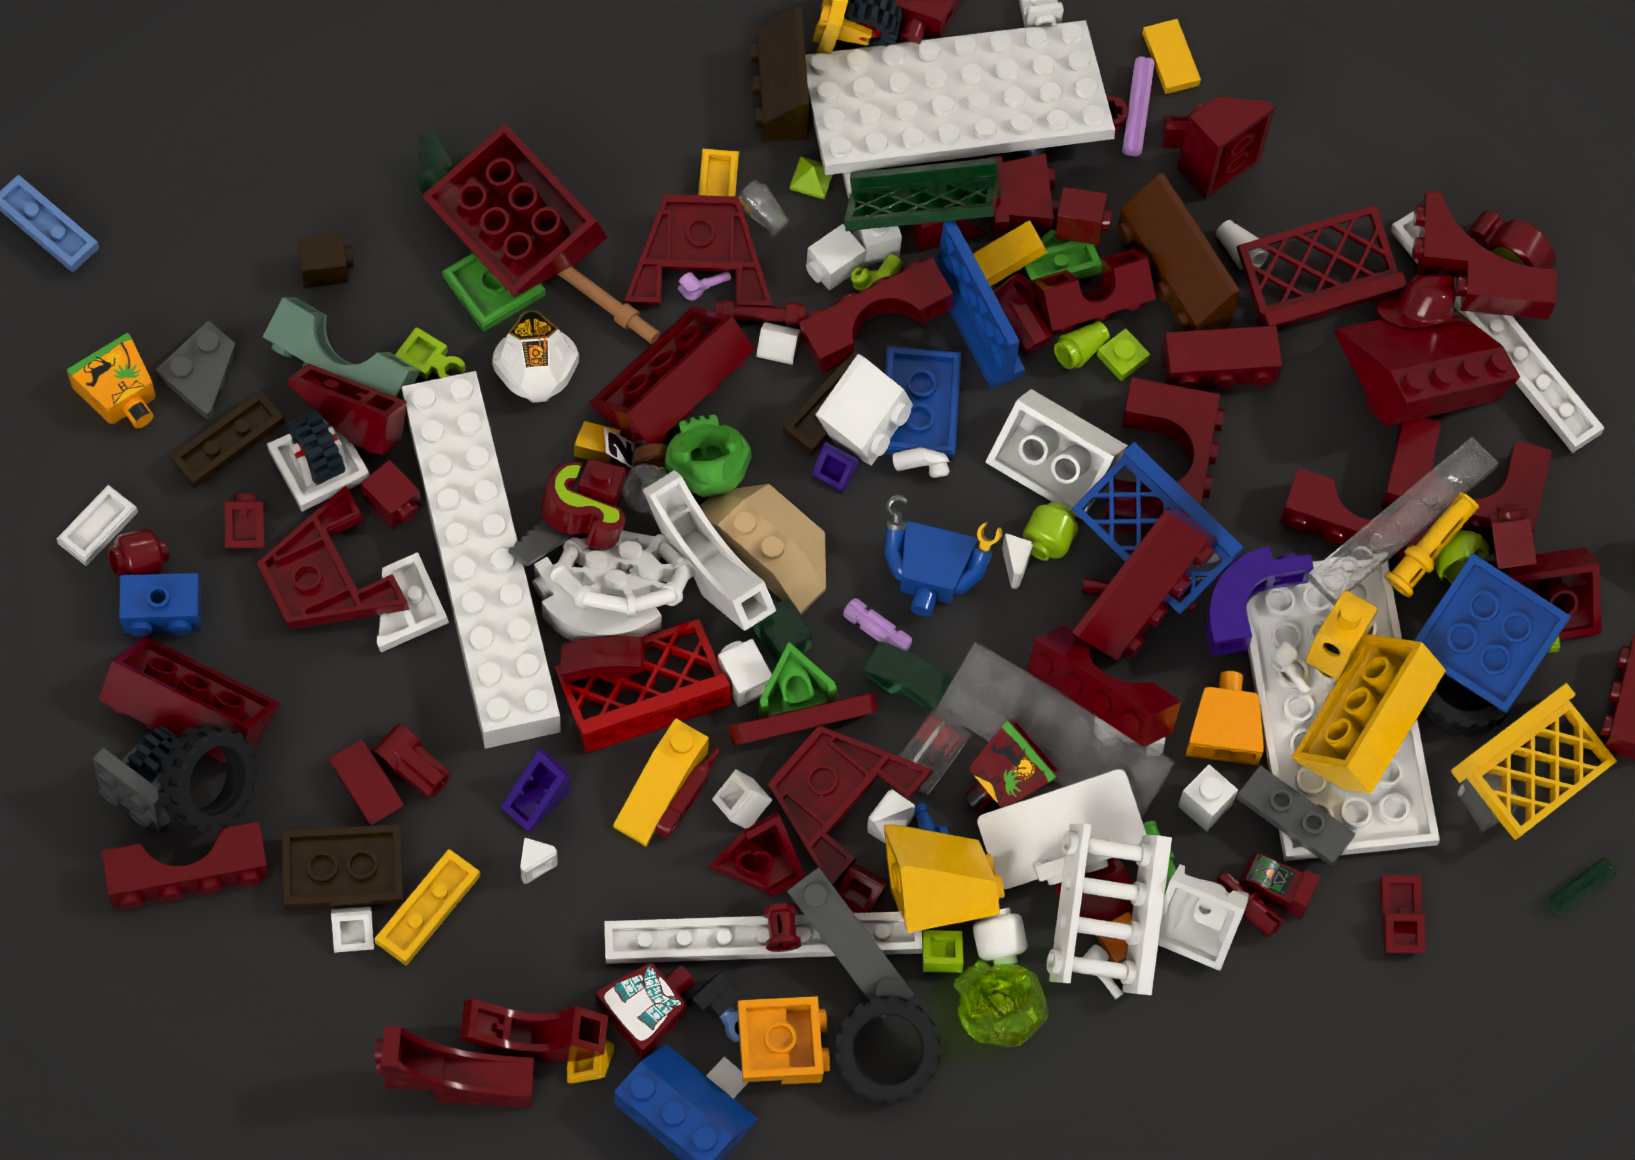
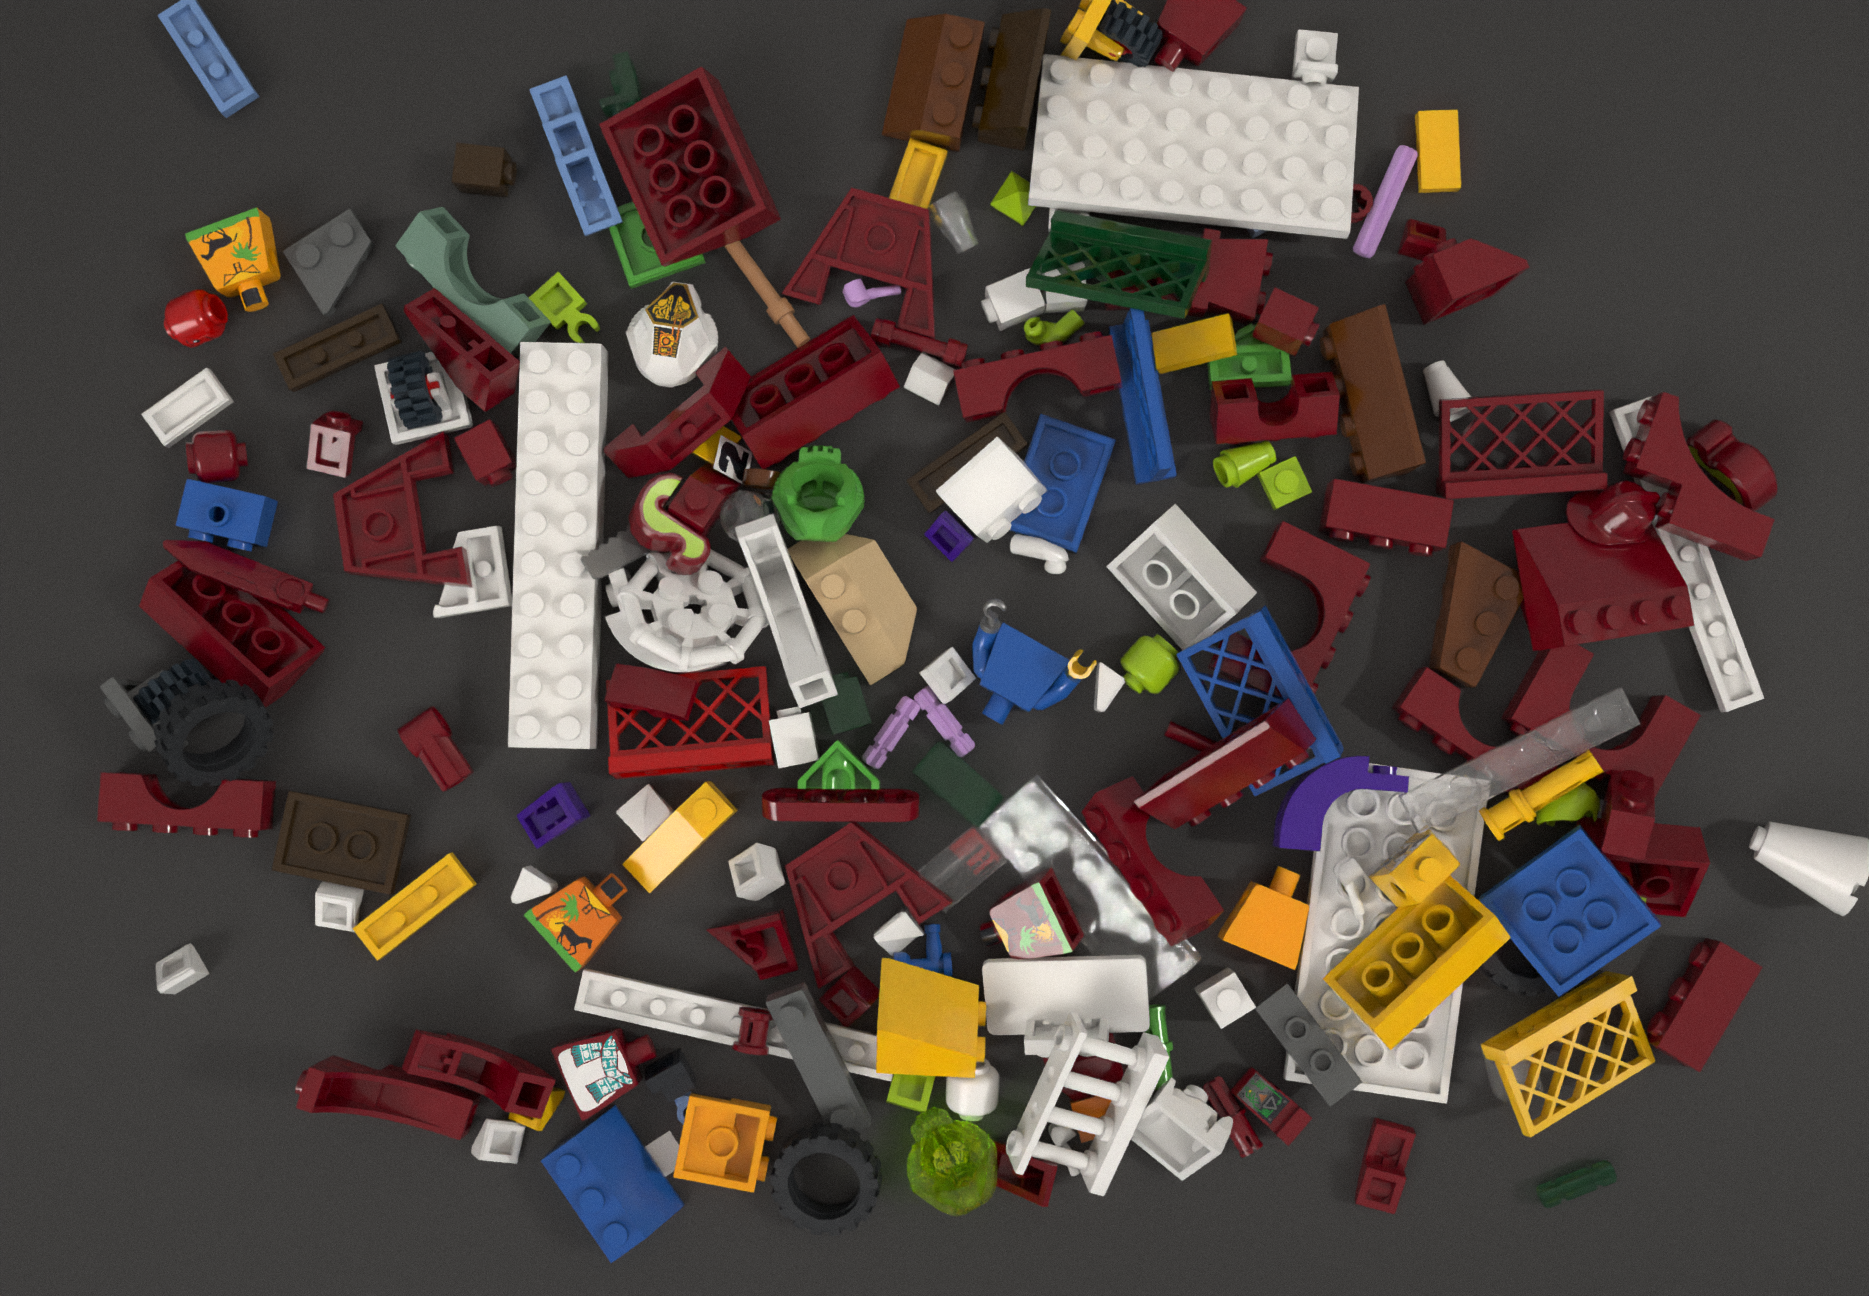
camera: 20 degrees right, 20 degrees up
(89, 443) = (195, 318): none -> red head
(215, 1024) = (179, 970): none -> white slope
(233, 657) = (246, 575): none -> dark red piece
(365, 782) = (386, 758): dark red slope -> none
(405, 230) = (576, 156): none -> medium blue slope
(563, 1102) = (499, 1141): none -> white slope
(569, 427) = (686, 425): none -> dark red slope
(586, 877) = (579, 918): none -> orange torso
(621, 771) = (645, 812): none -> white slope
(686, 797) = (702, 854): dark red piece -> none
(710, 96) = (934, 80): none -> reddish brown slope
(833, 643) = (891, 732): none -> lavender axle
(869, 584) = (947, 675): none -> white plate
(1017, 301) = (1187, 402): dark red piece -> none
(1075, 1001) = (1033, 1185): none -> dark red slope
(1325, 414) = (1474, 614): none -> reddish brown wedge

